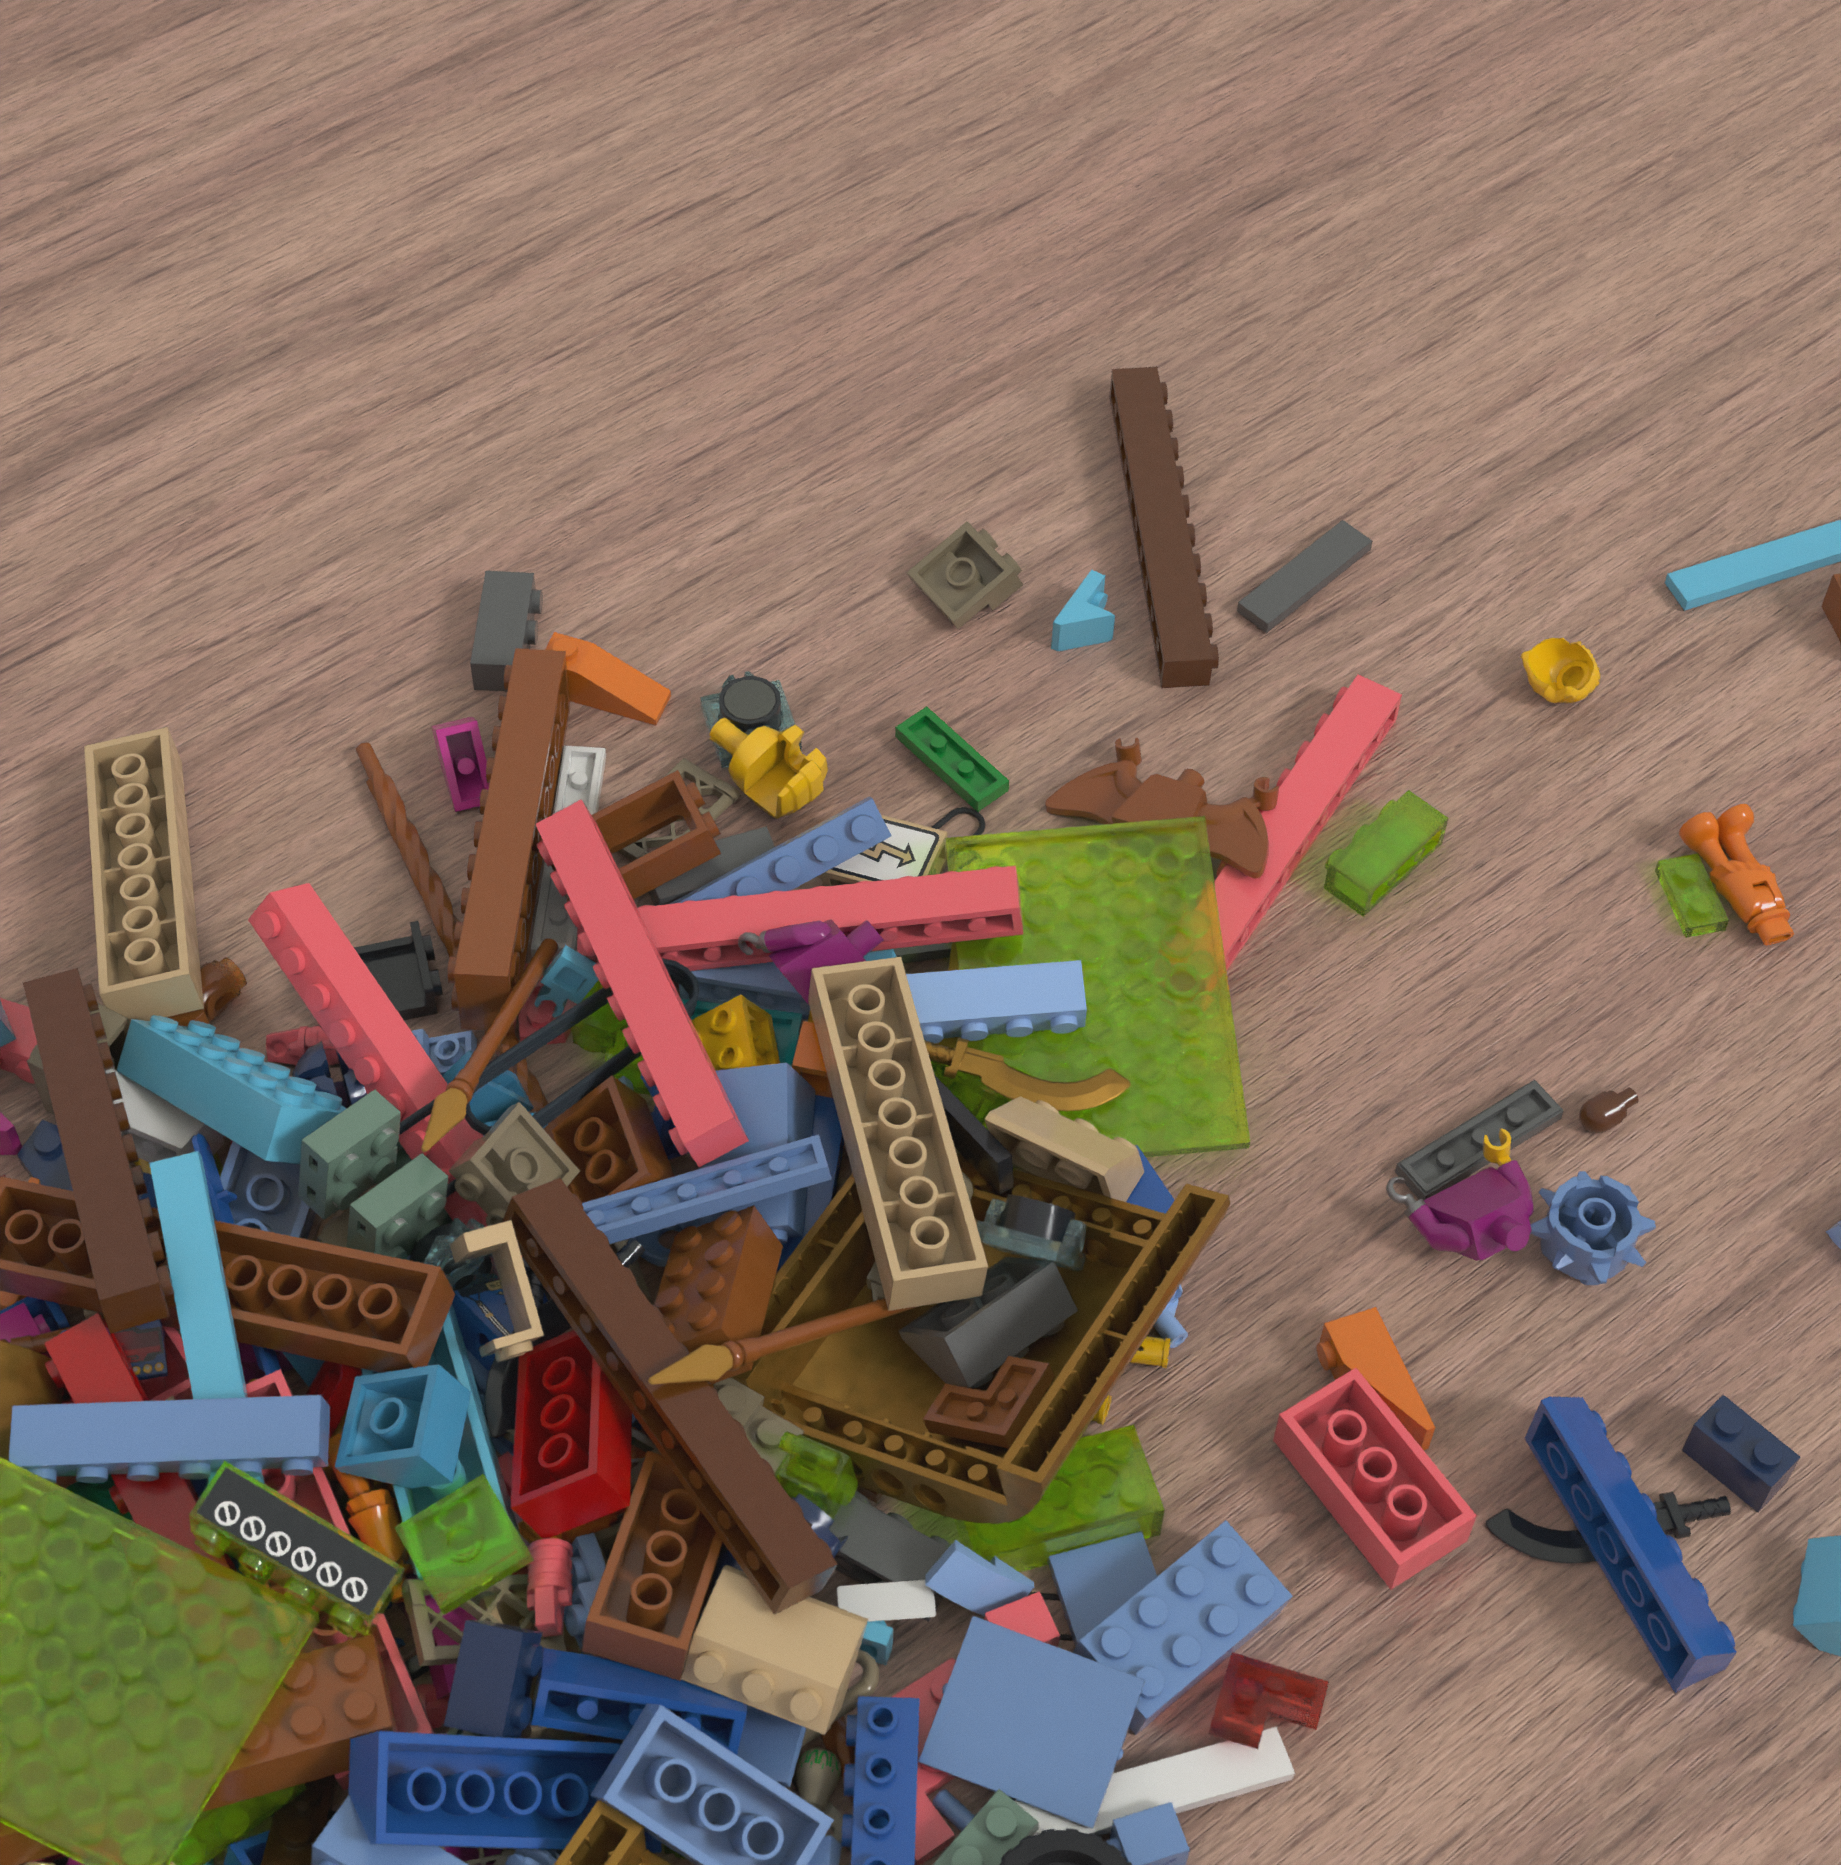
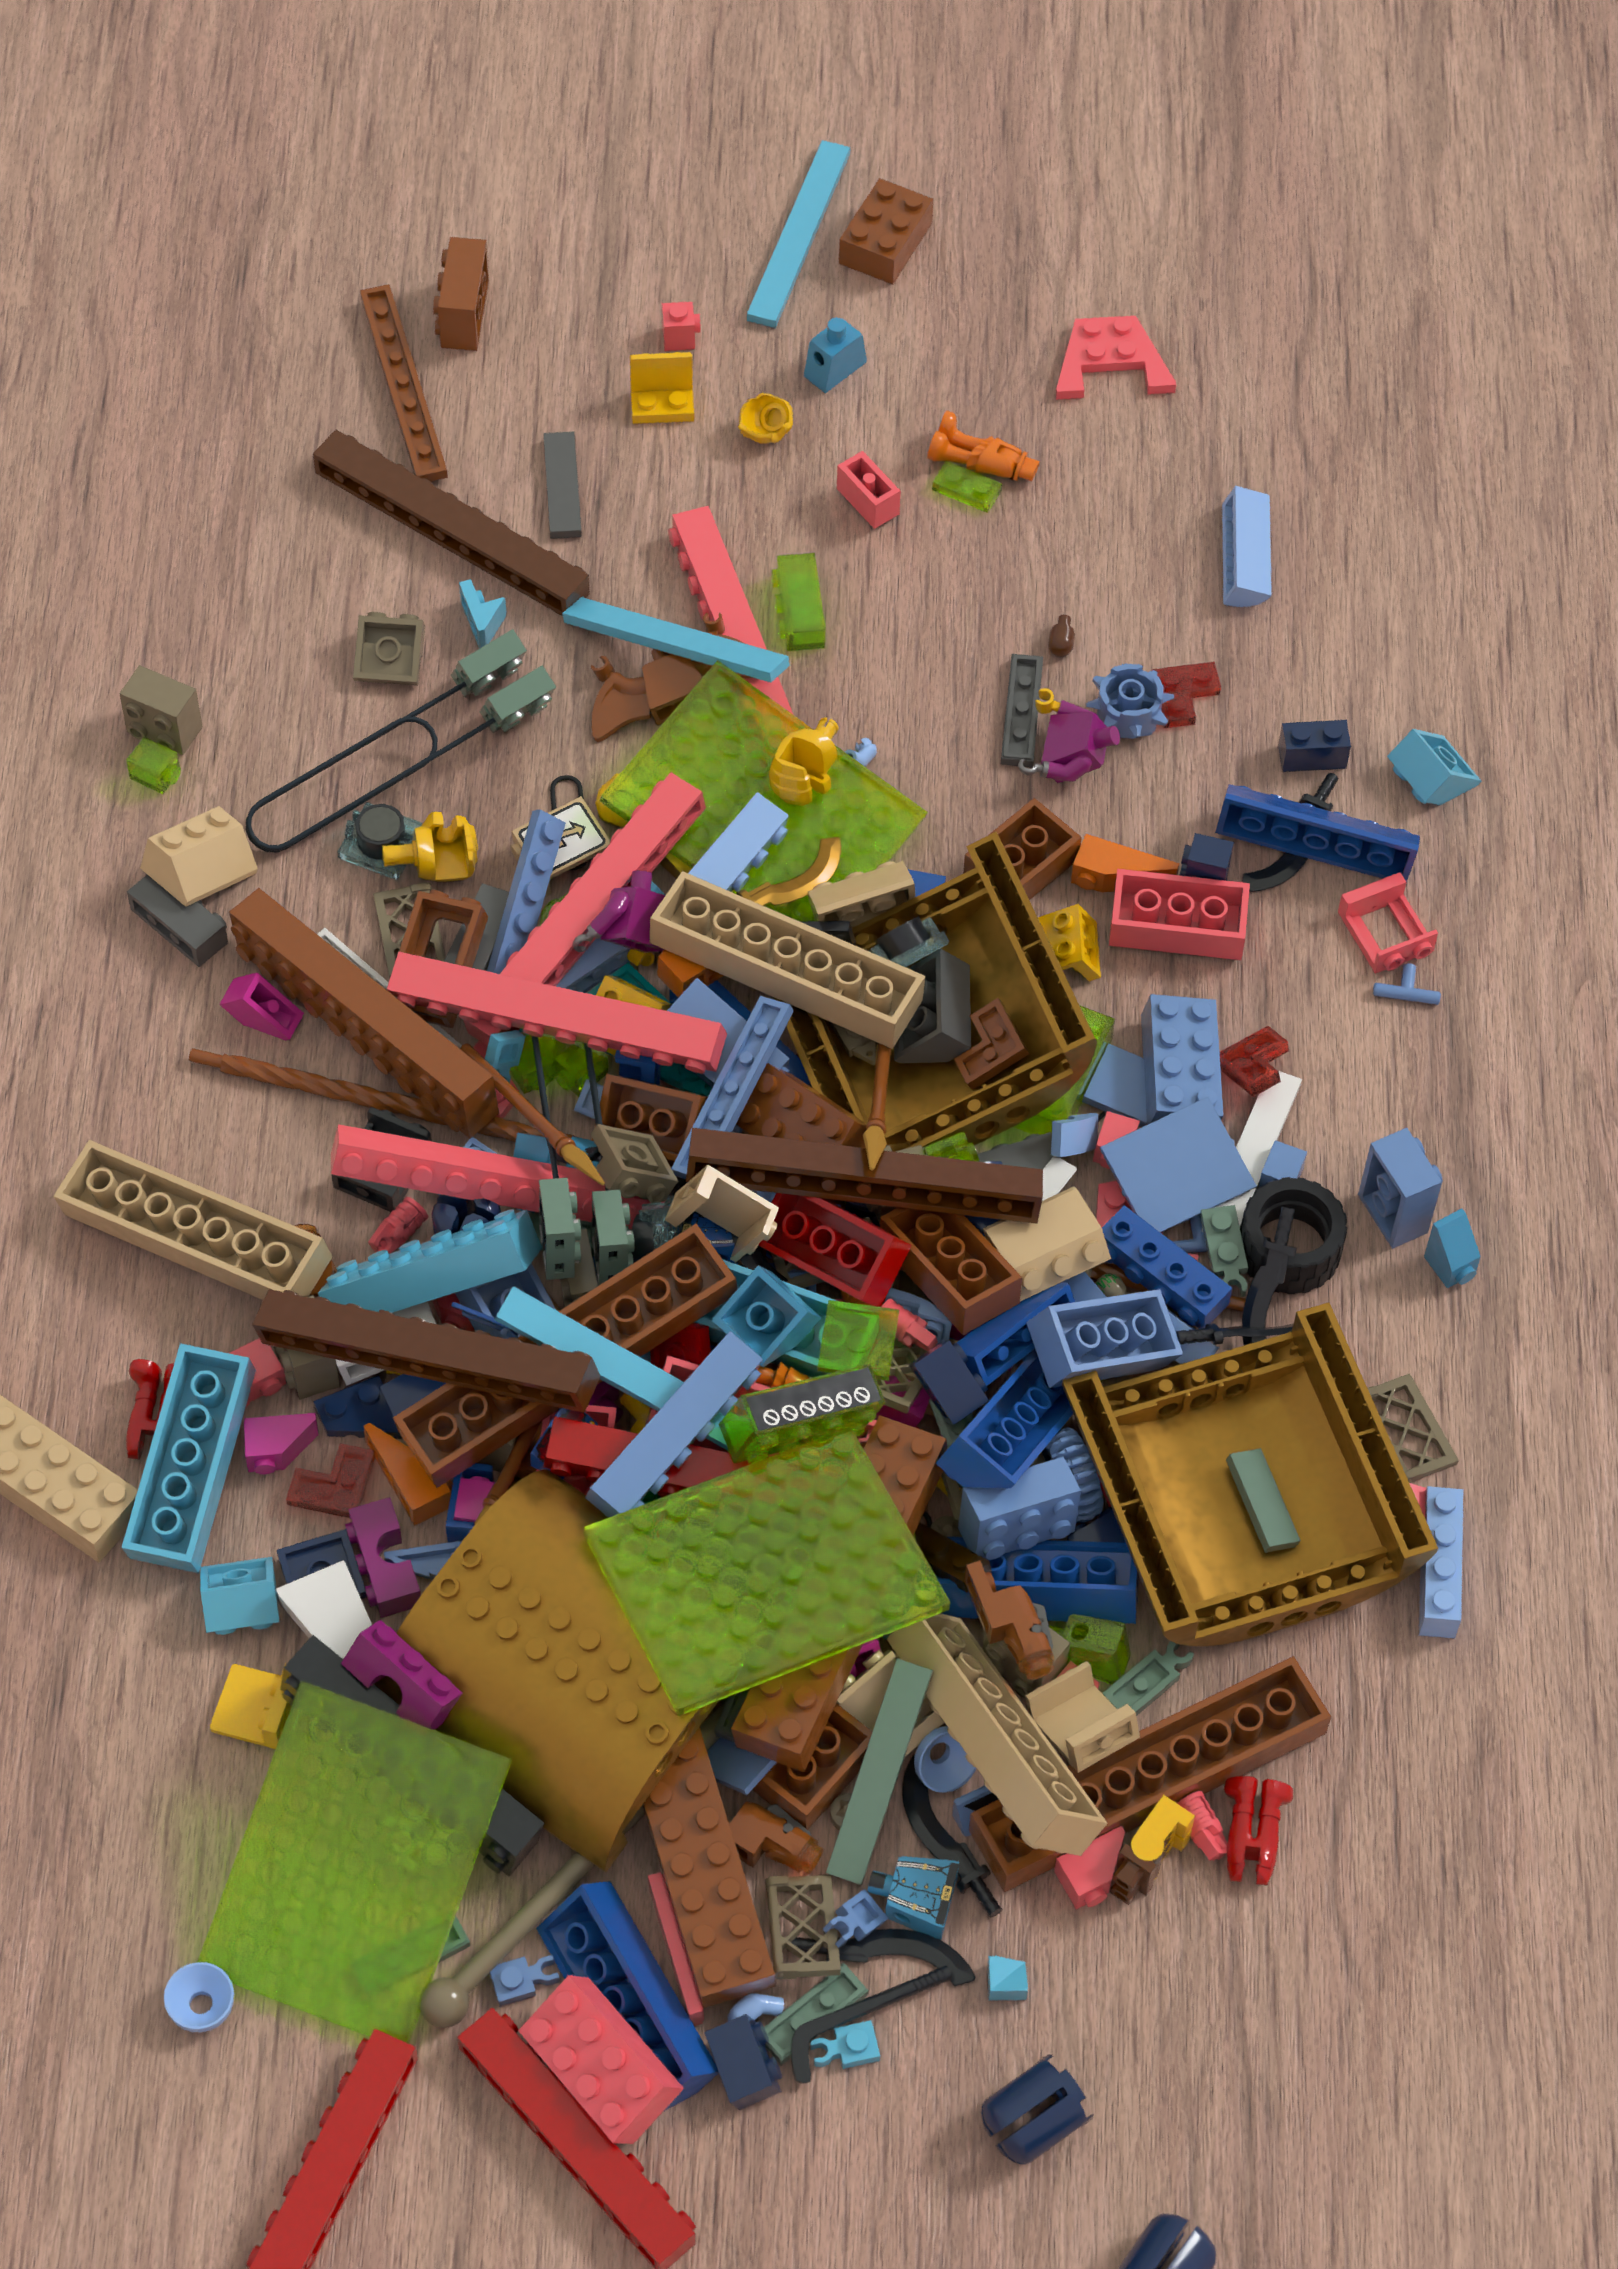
camera: 50 degrees left, 5 degrees up
(576, 593) = (199, 856): none -> tan slope
(609, 683) = (286, 886): orange slope -> none
(654, 500) = (153, 765): none -> clear neon green brick
(709, 459) = (161, 709): none -> dark tan brick
(952, 759) = (517, 758): green plate -> none
(1008, 696) = (471, 675): none -> piece
(1167, 973) = (803, 763): none -> yellow piece
(1209, 778) = (676, 639): none -> medium azure tile
(1226, 1391) = (1074, 940): none -> yellow bracket
(1256, 1040) = (865, 751): none -> light blue arm
(1272, 386) = (403, 383): none -> dark orange plate
(1286, 1268) = (1037, 846): none -> dark orange brick
(1415, 350) = (462, 293): none -> dark orange brick
(1462, 1452) = (1207, 858): none -> dark blue brick
(1499, 567) = (661, 387): none -> yellow bracket
(1532, 1801) = (1407, 990): none -> medium blue piece
(1578, 810) = (868, 489): none -> coral brick
(1584, 531) = (679, 326): none -> coral brick
(1615, 1669) = (1375, 896): none -> coral panel
(1673, 1264) = (1187, 683): none -> clear red plate
(1702, 669) = (834, 354): none -> dark azure torso

